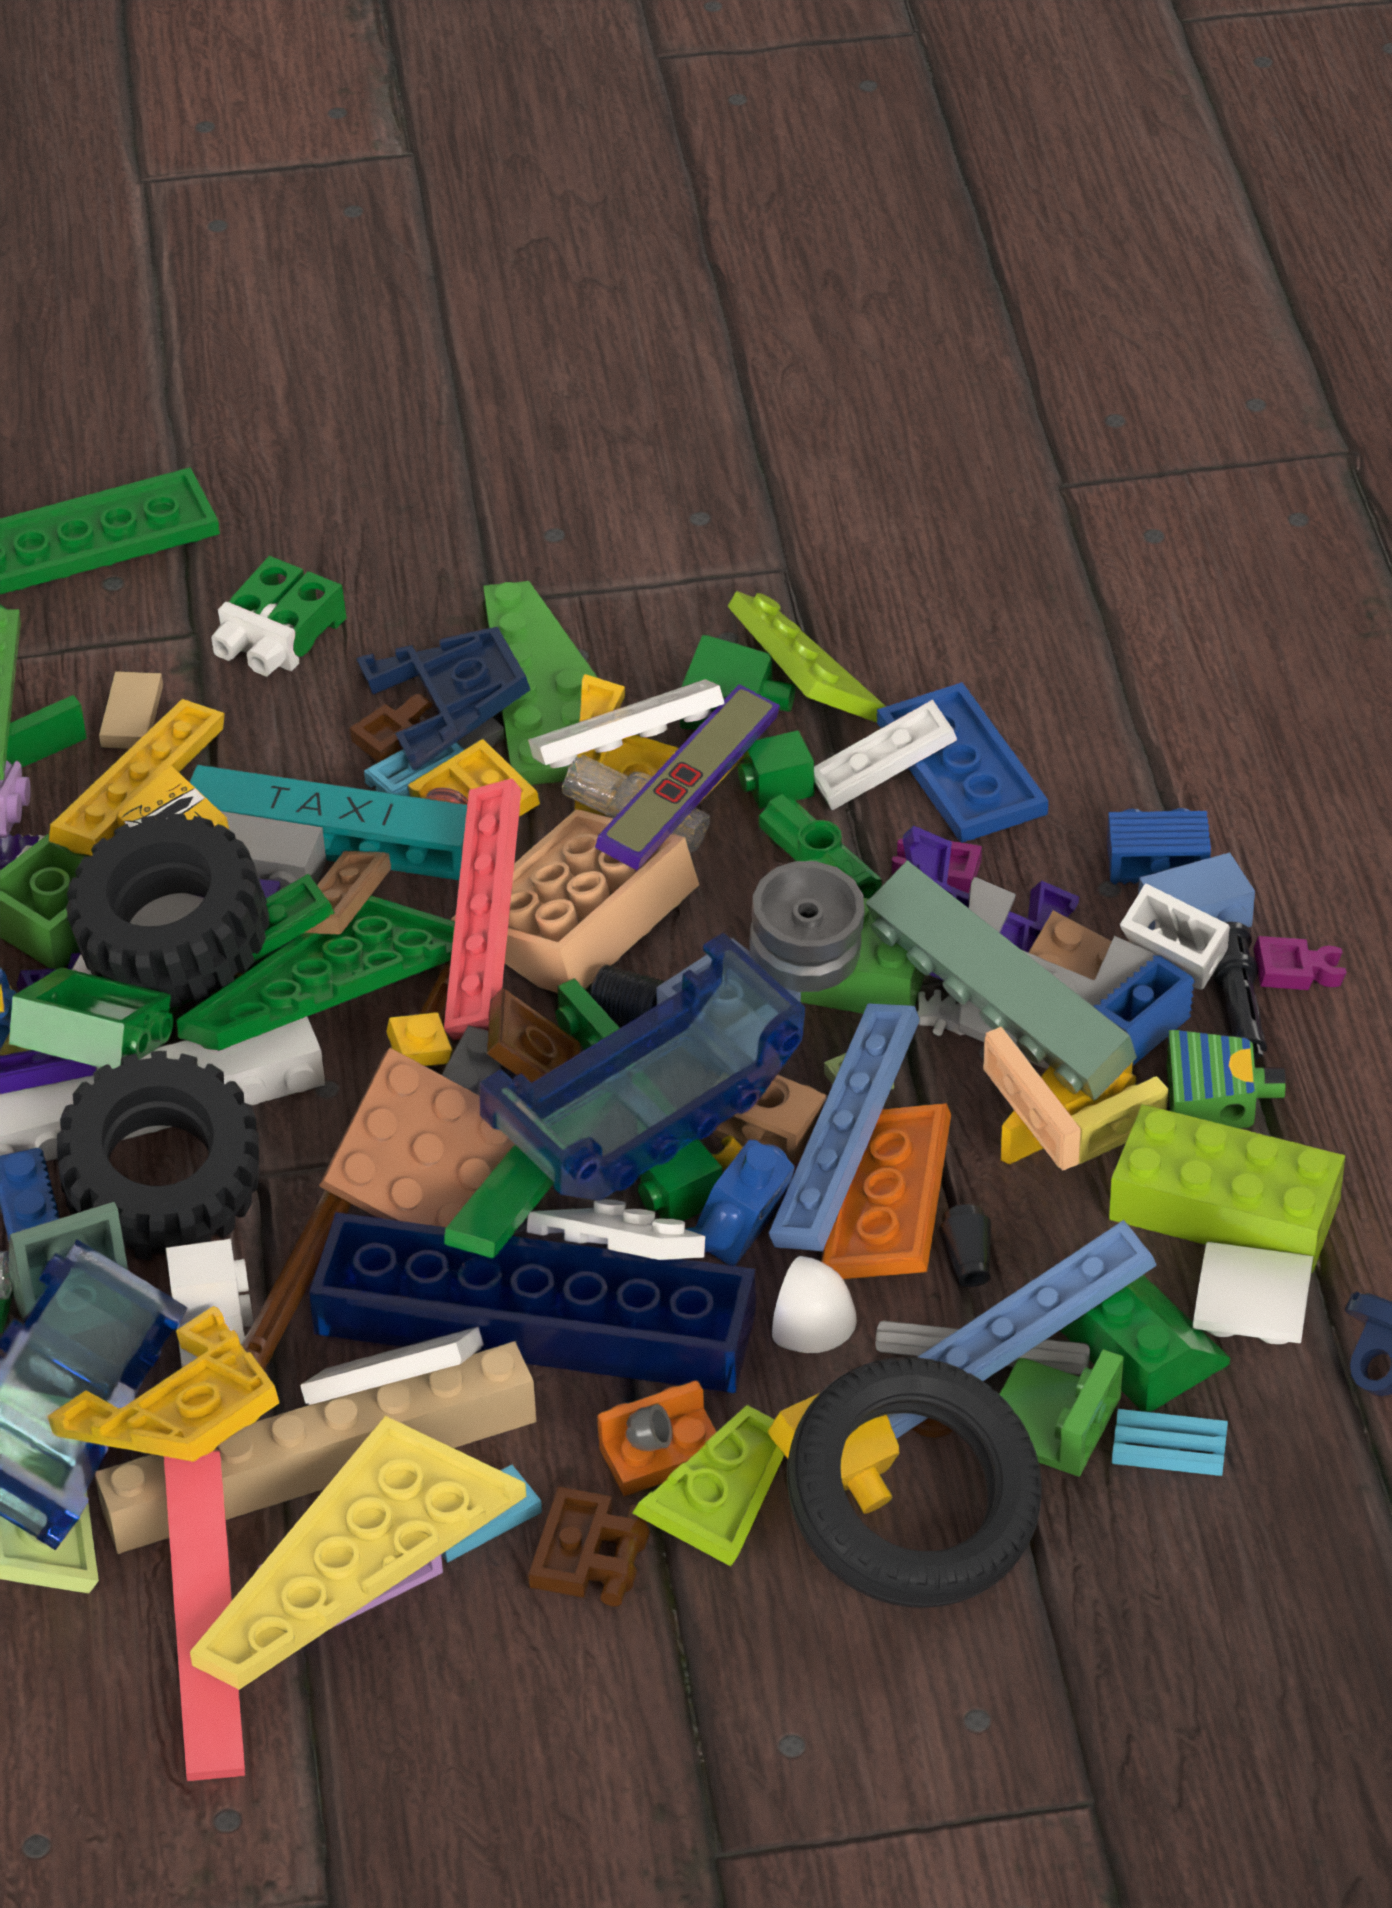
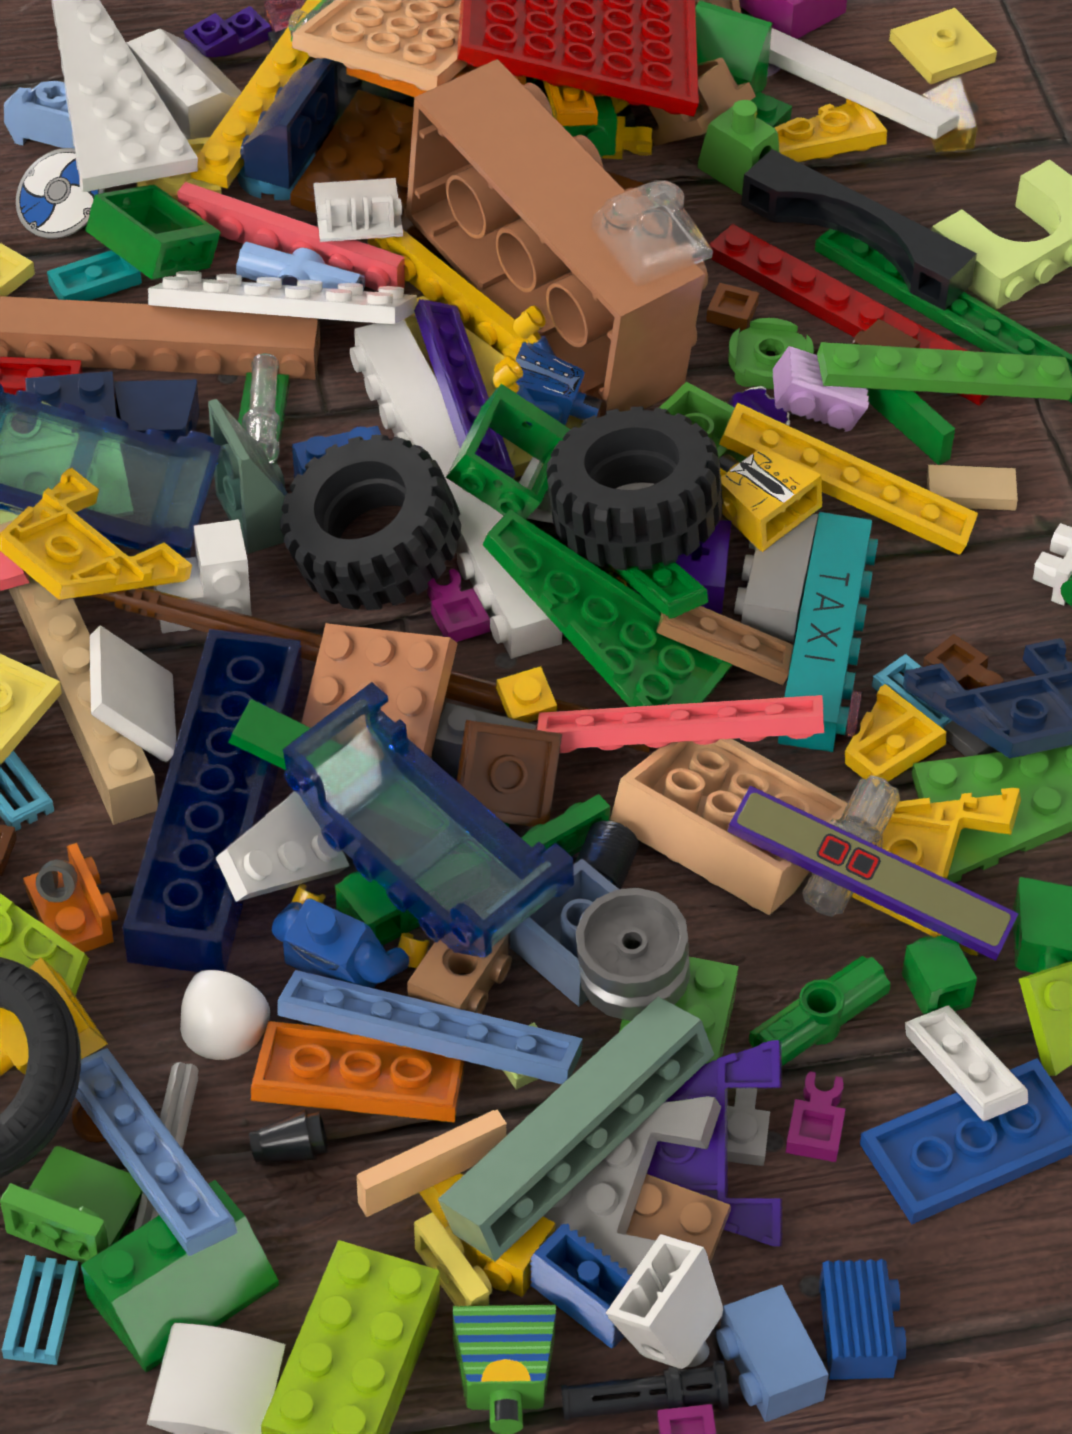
camera: 85 degrees right, 5 degrees up
(276, 1112) = (457, 612): none -> magenta plate
(644, 717) = (948, 822): white plate -> none

